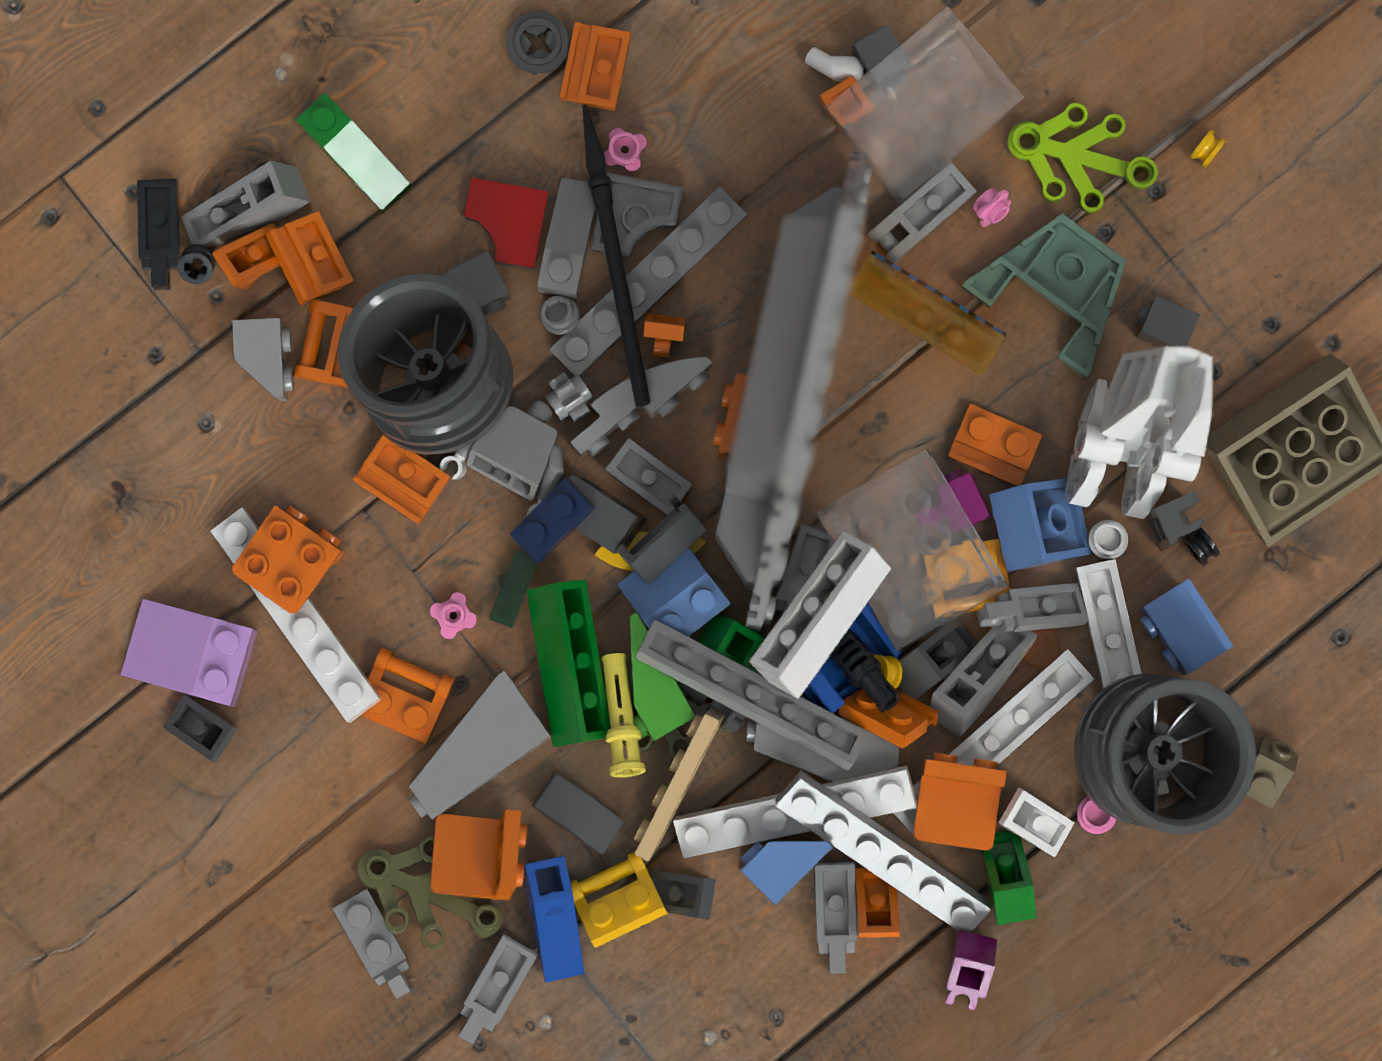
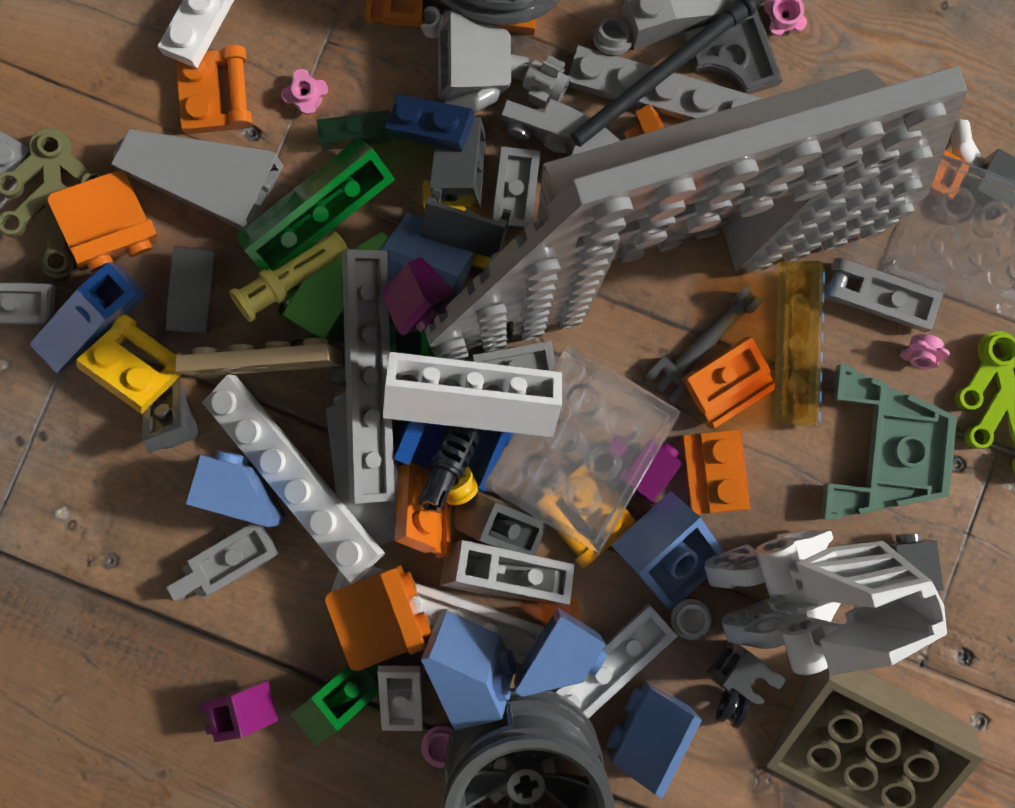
camera: 60 degrees right, 0 degrees up
(712, 615) = (416, 296): none -> magenta slope
(862, 335) = (743, 303): none -> dark grey hinge
(875, 906) = (249, 594): orange slope -> none
(883, 853) = (294, 574): plate -> none
(924, 389) = (730, 382): none -> orange plate
(1036, 608) = (592, 589): light grey hinge -> none
(1044, 746) = (468, 670): none -> medium blue slope
(1073, 664) = (560, 656): none -> medium blue slope

